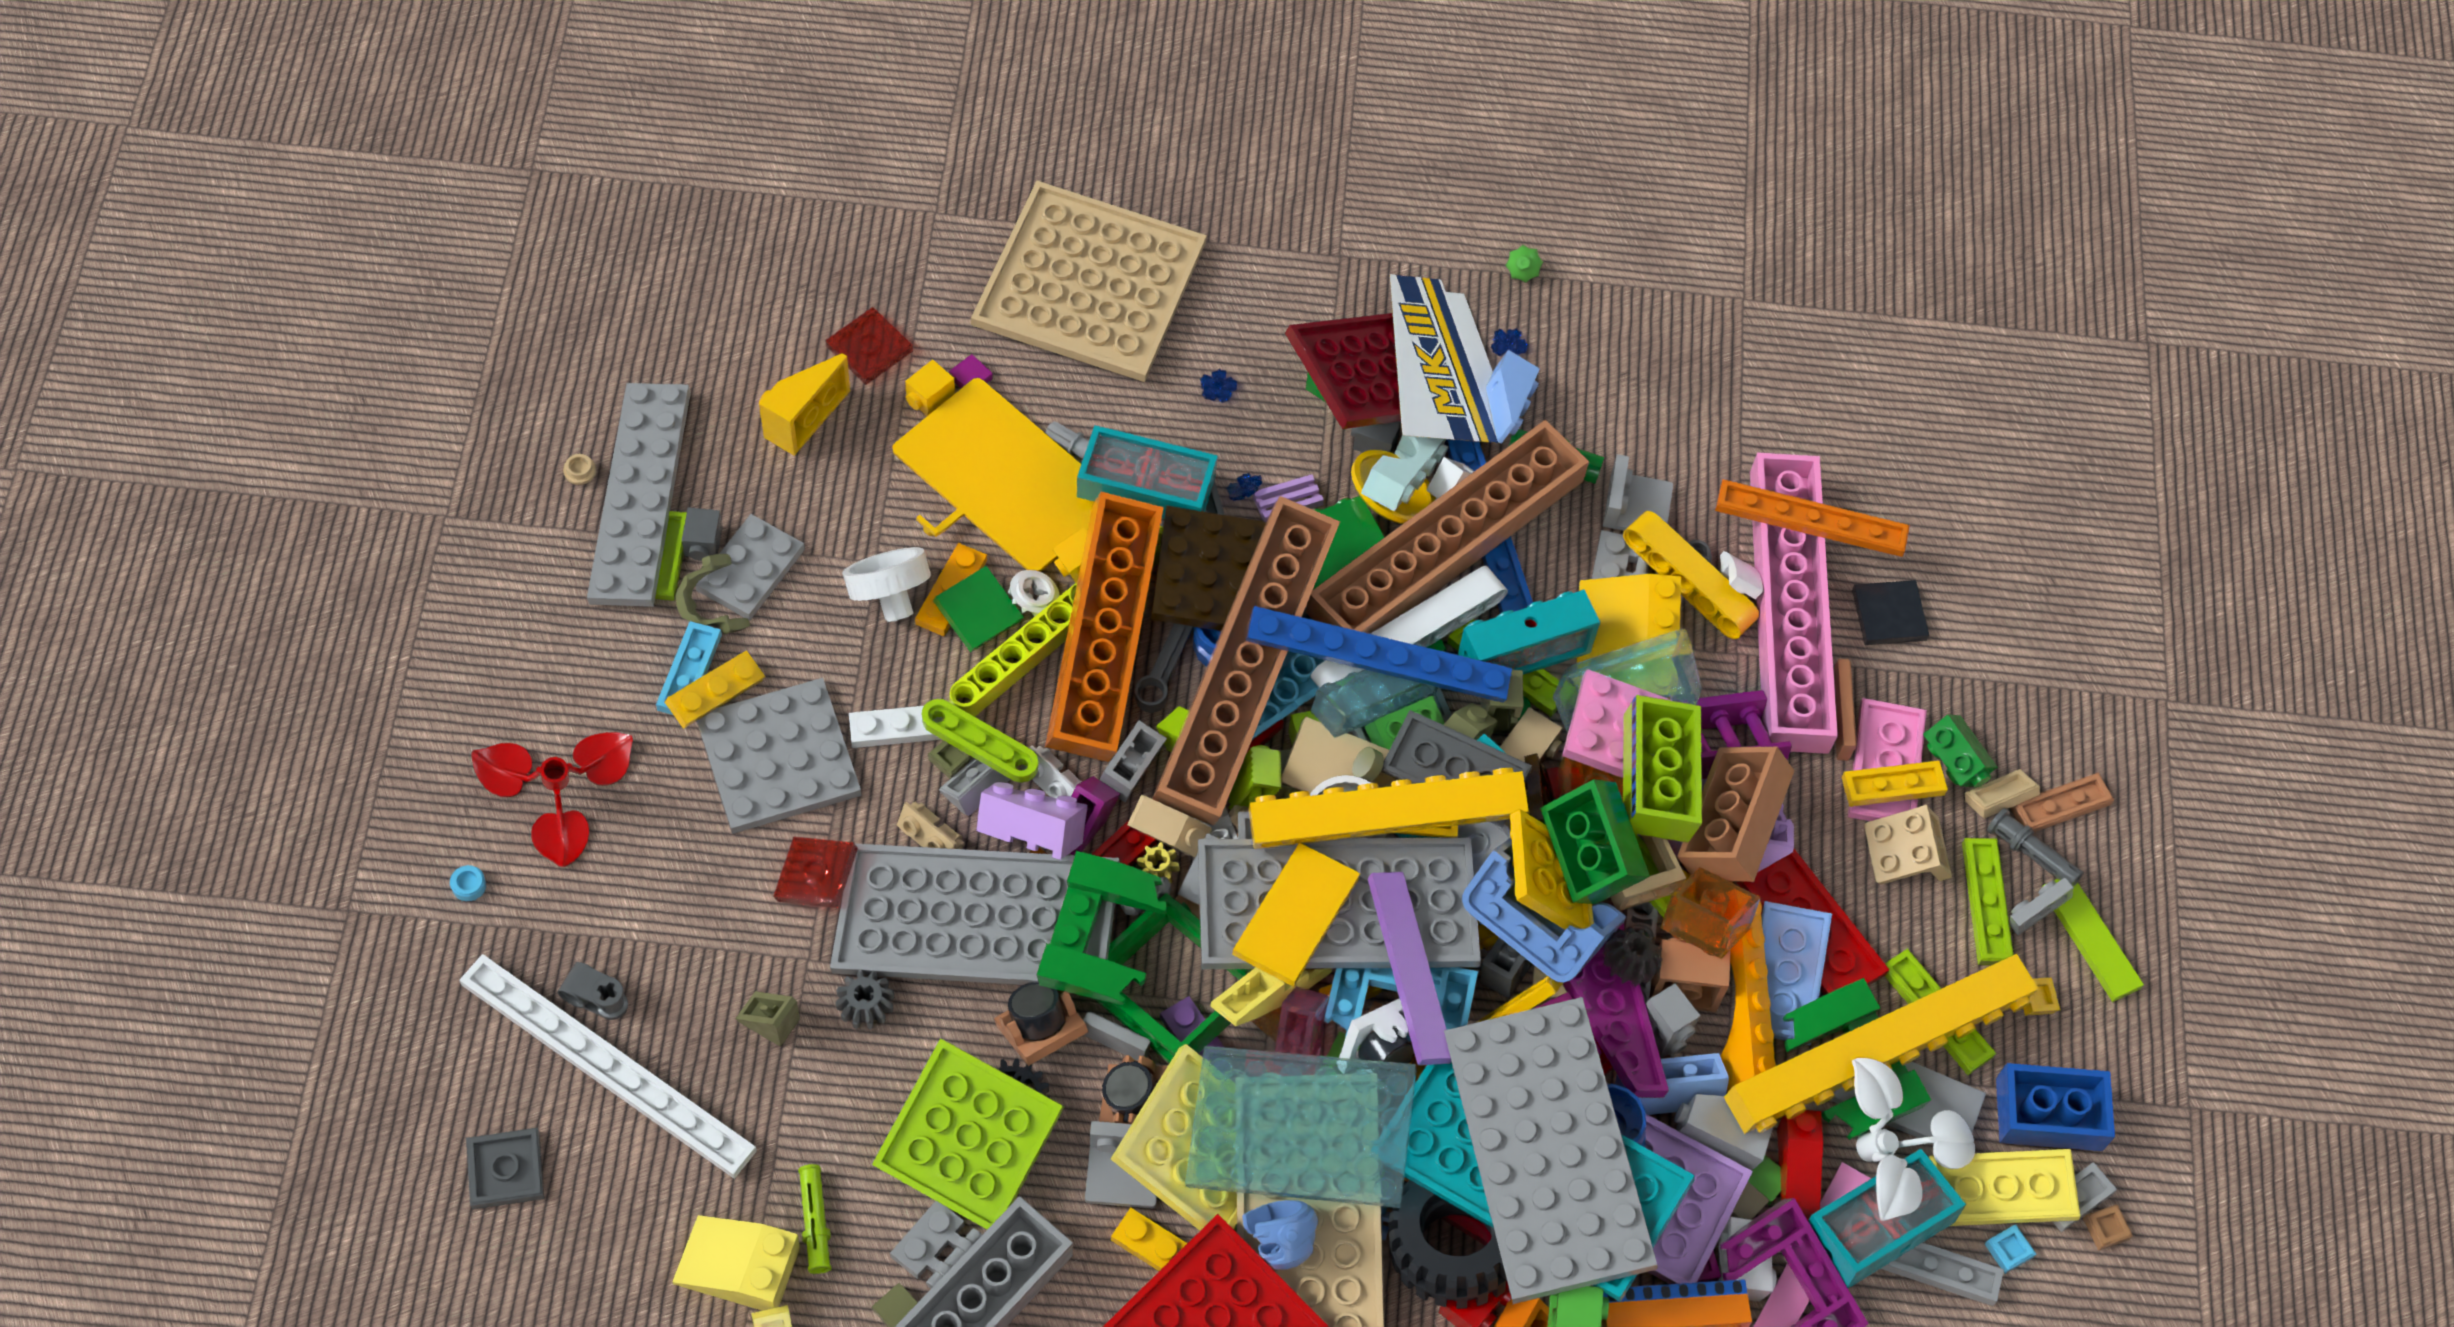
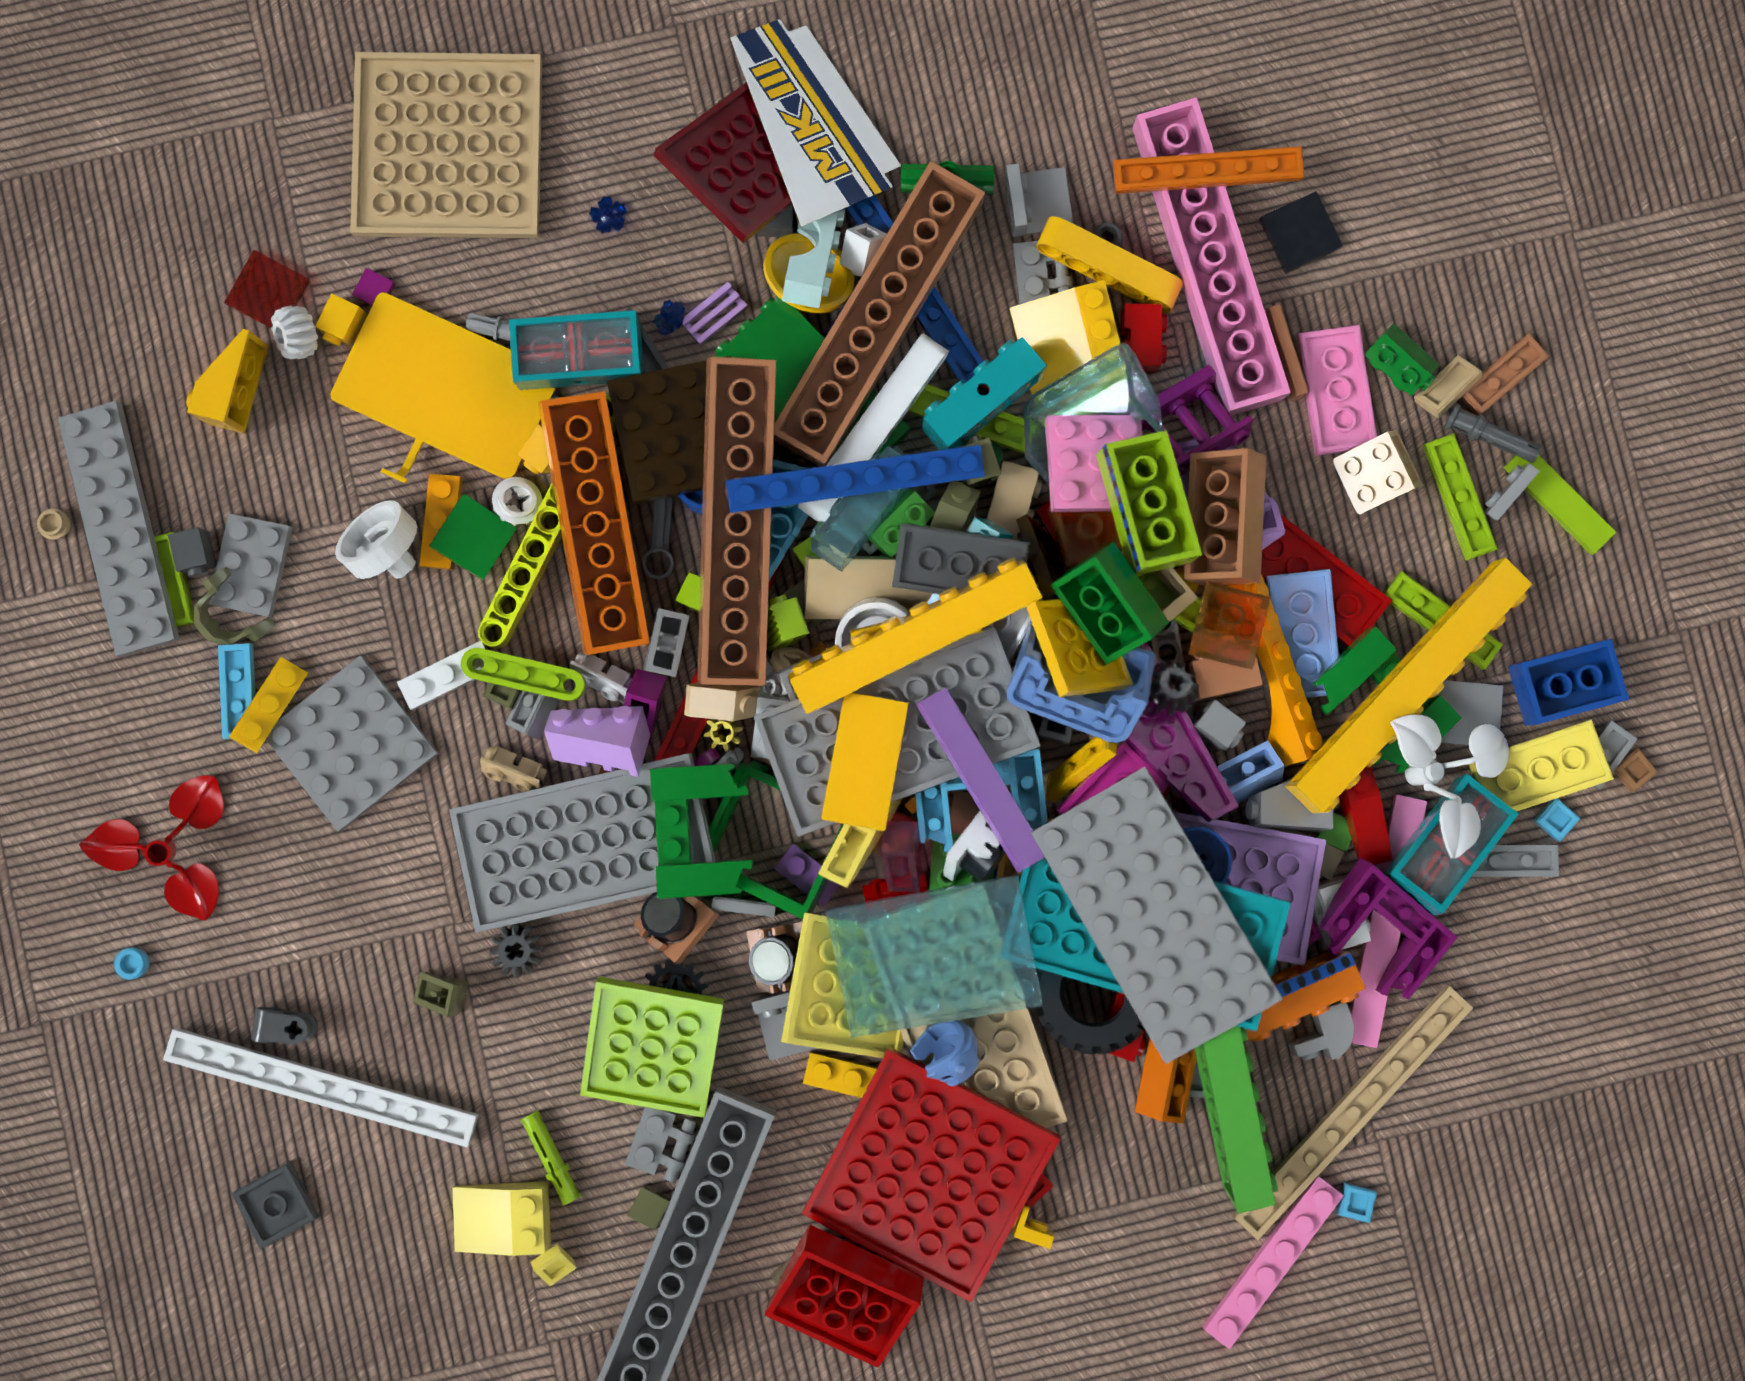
camera: 15 degrees left, 25 degrees up
(815, 872) = (428, 847): clear red tile -> none
(883, 381) = (294, 332): none -> white gear
(1368, 764) = (879, 585): olive tile -> none
(1508, 393) = (883, 128): light blue slope -> none
(1509, 341) = (866, 67): clear blue plant -> none
(1709, 641) = (1143, 332): none -> red brick
(1741, 575) = (1157, 247): white slope -> none
(1894, 783) = (1351, 416): yellow plate -> none
(2044, 999) = (1533, 572): yellow plate -> none

